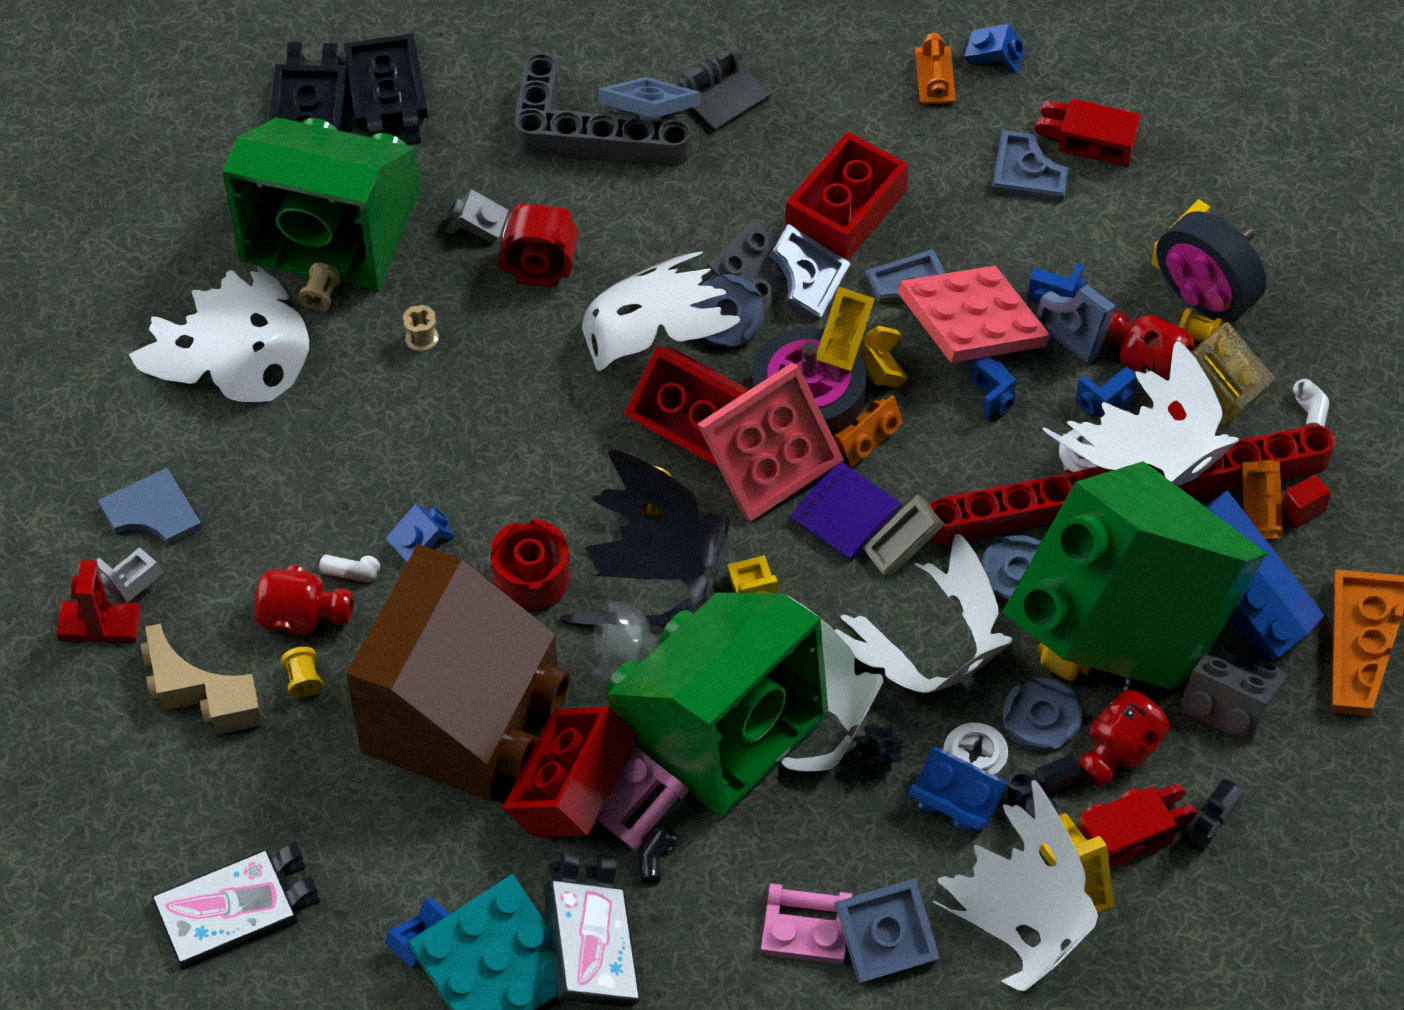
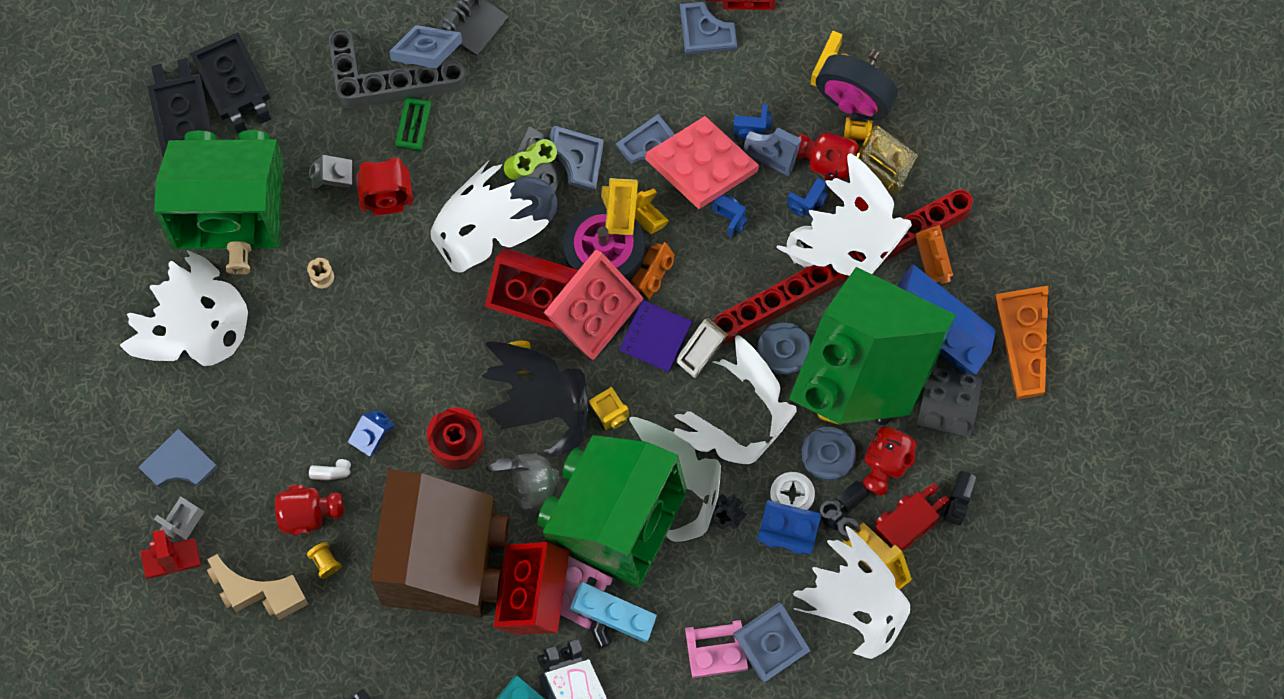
camera: 15 degrees left, 15 degrees up
(602, 214) = (409, 144): none -> green tile
(675, 834) = (613, 612): none -> medium azure plate
(737, 251) = (530, 159): none -> lime axle
(847, 195) = (588, 90): red brick -> none
(1305, 501) = (962, 247): red piece -> none
(1313, 402) = (949, 167): white arm -> none

